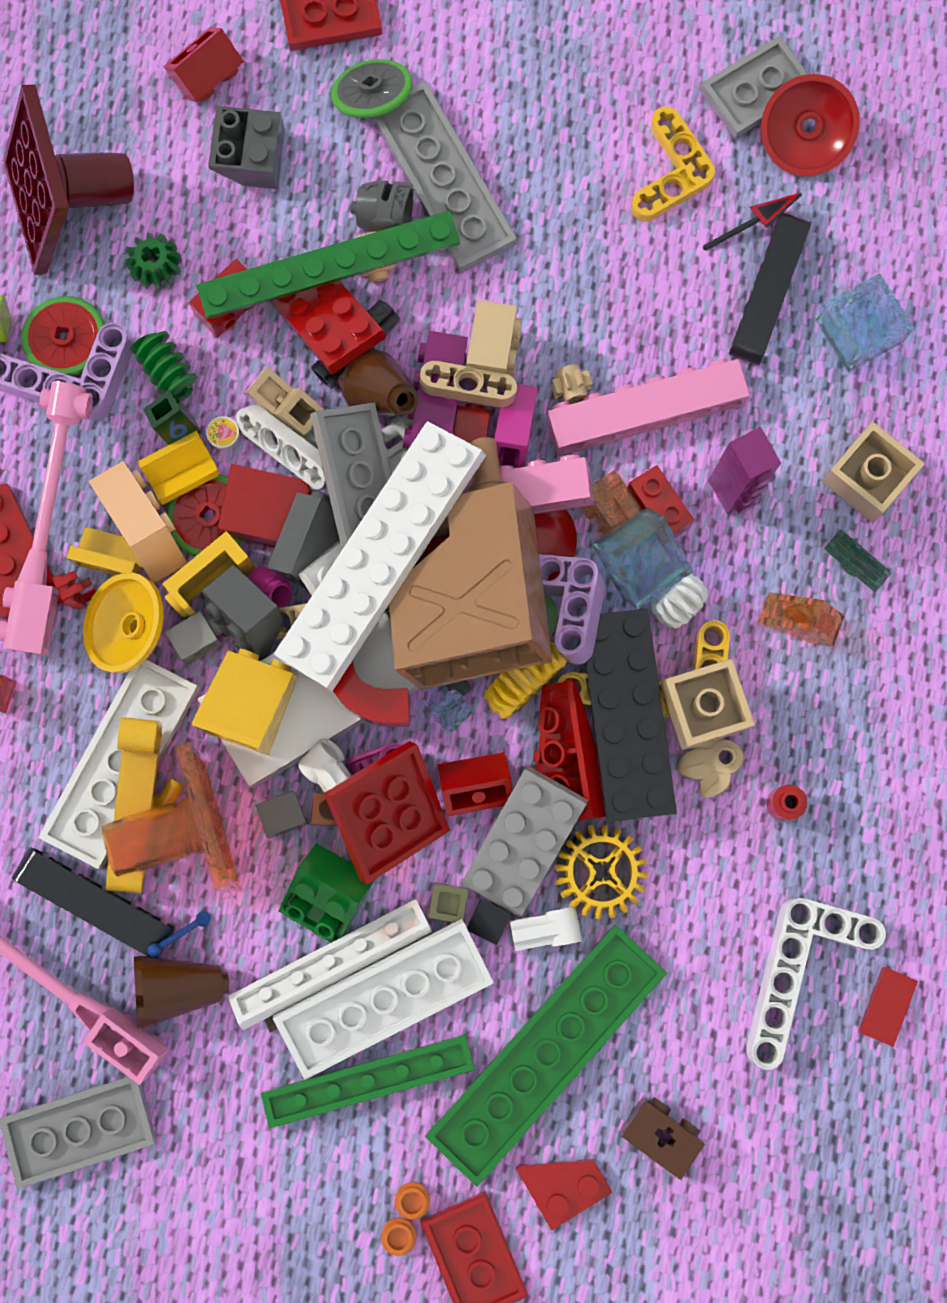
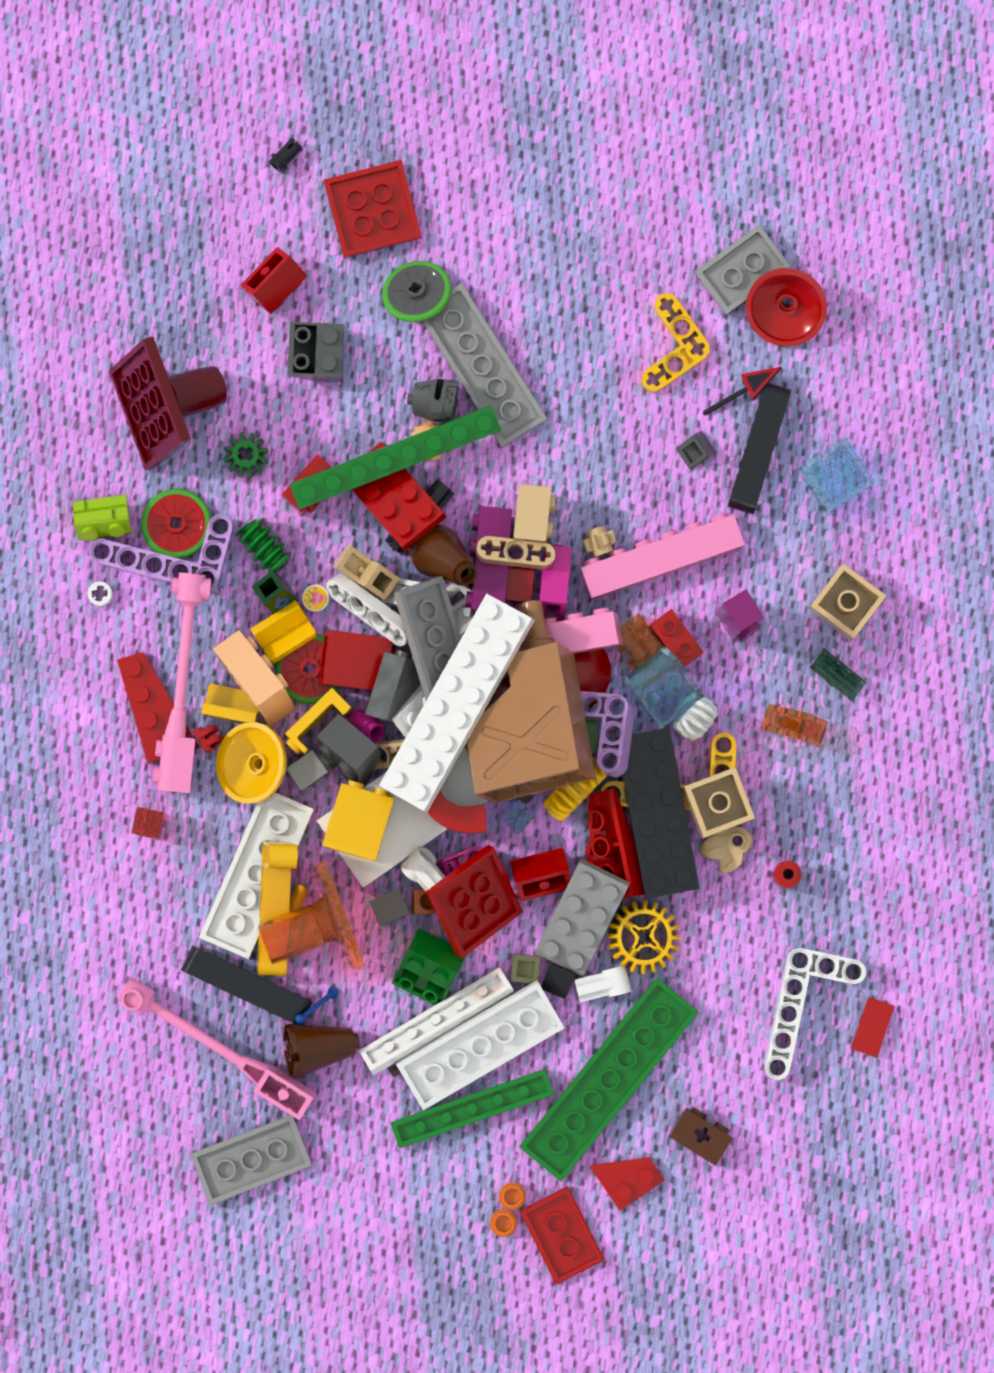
camera: 10 degrees left, 5 degrees up
(692, 288) = (696, 450): none -> dark grey slope

